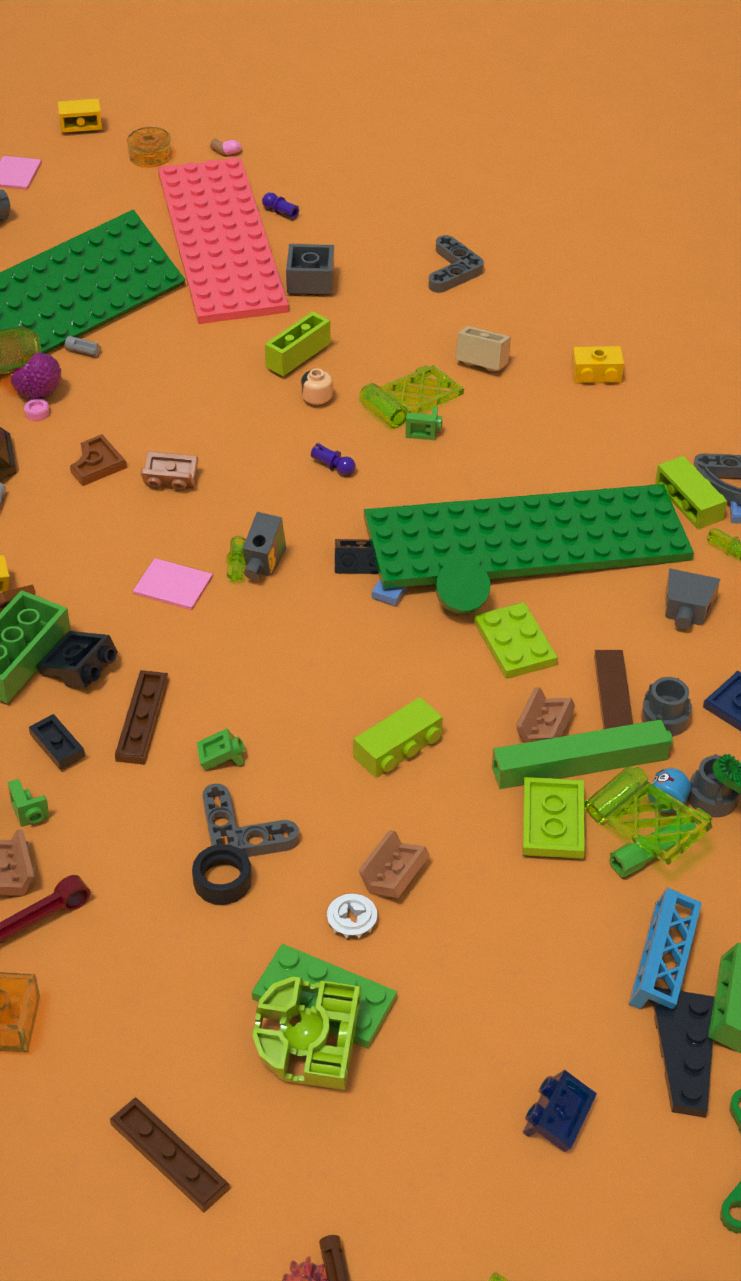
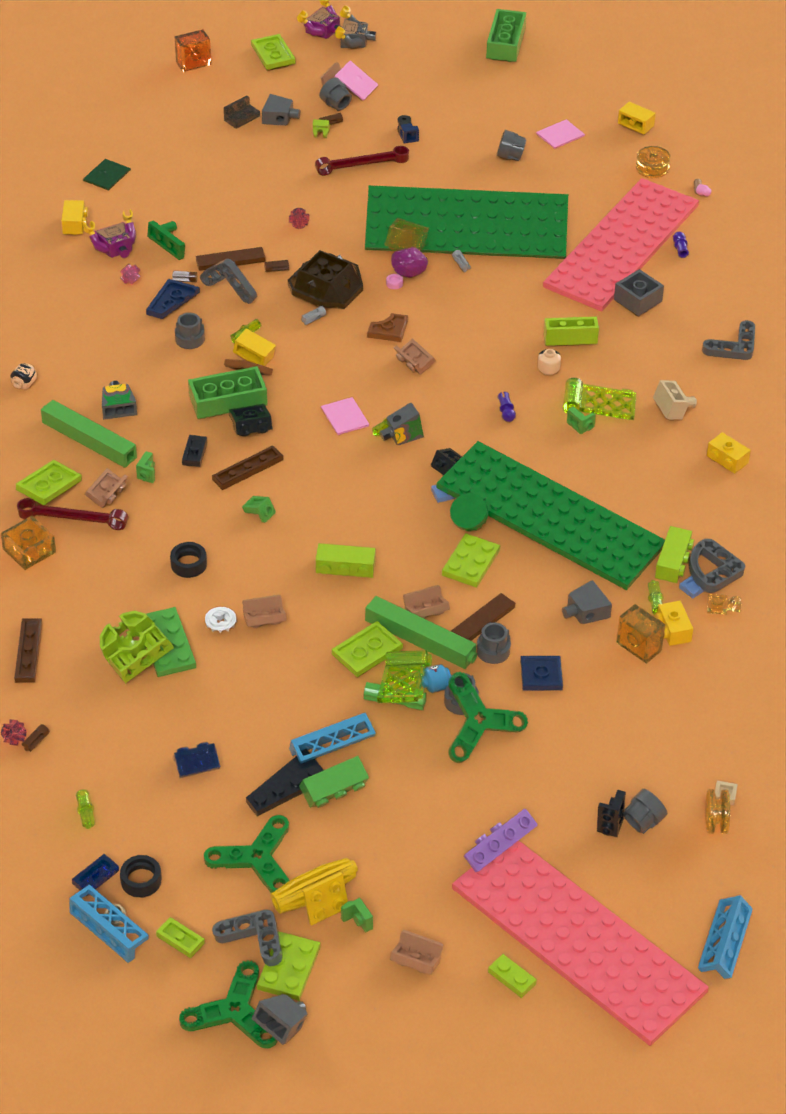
camera: 45 degrees right, 0 degrees up
(239, 836) = (240, 563): dark grey beam -> none

